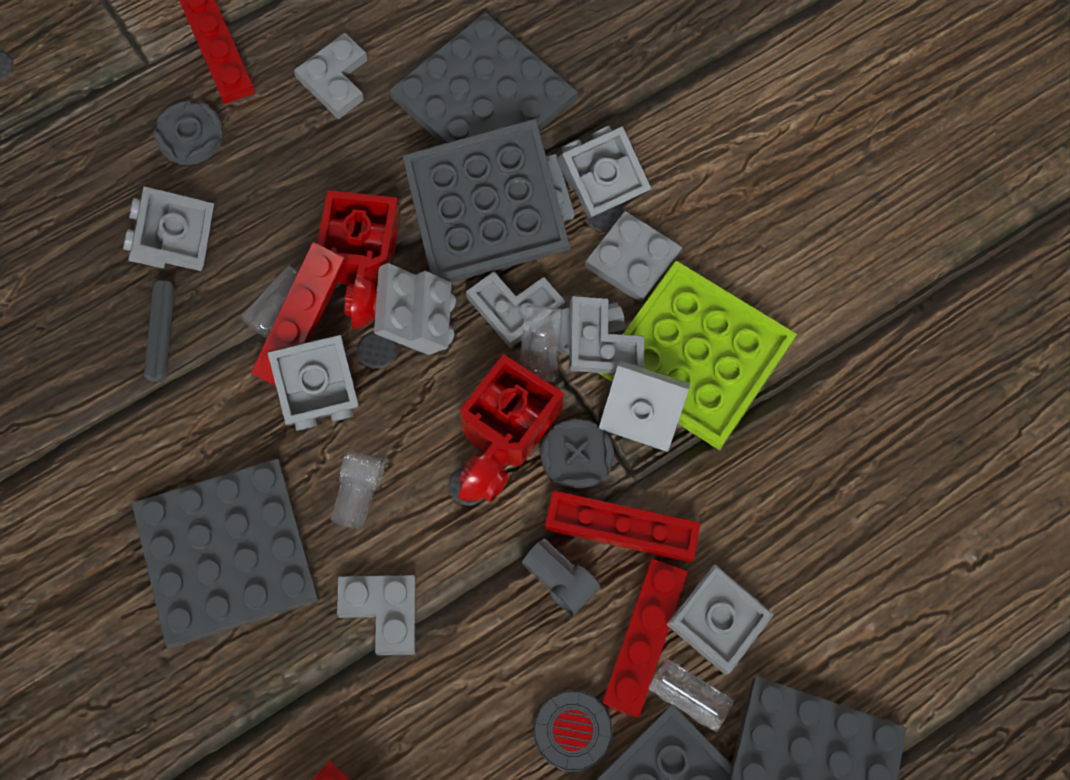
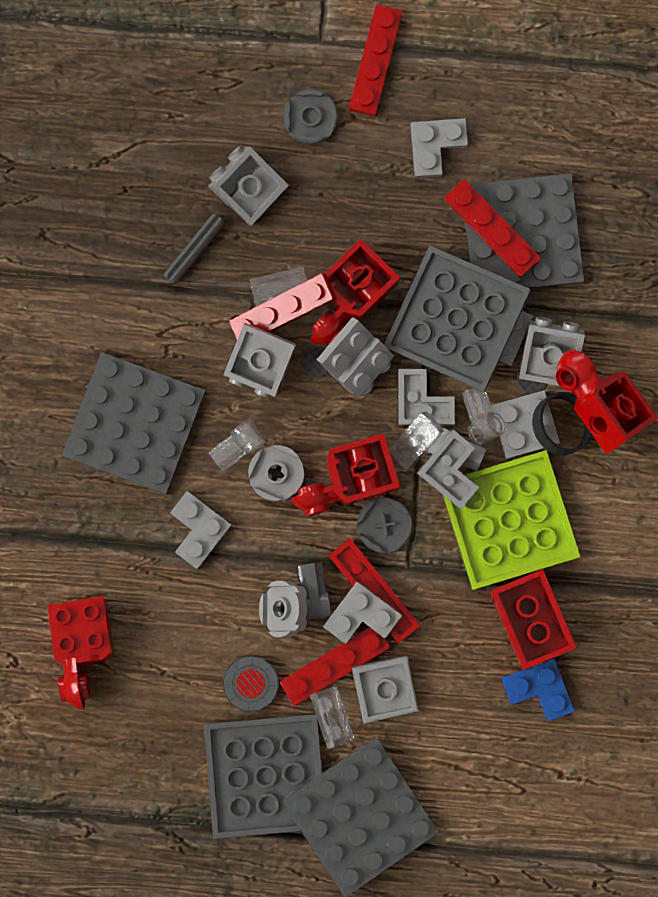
camera: 45 degrees right, 15 degrees up
(419, 507) = (282, 488): none -> light grey plate
(450, 101) = (492, 228): none -> red plate
(561, 608) = (293, 618): none -> light grey plate
(590, 276) = (485, 423): none -> clear piece
(624, 549) = (358, 607): none -> light grey plate
(644, 406) = (445, 529): light grey plate -> none
(662, 244) = (540, 433): none -> black tyre
(692, 172) = (608, 407): none -> red brick
(807, 428) = (532, 619): none -> red brick
(868, 486) = (544, 682): none -> blue plate

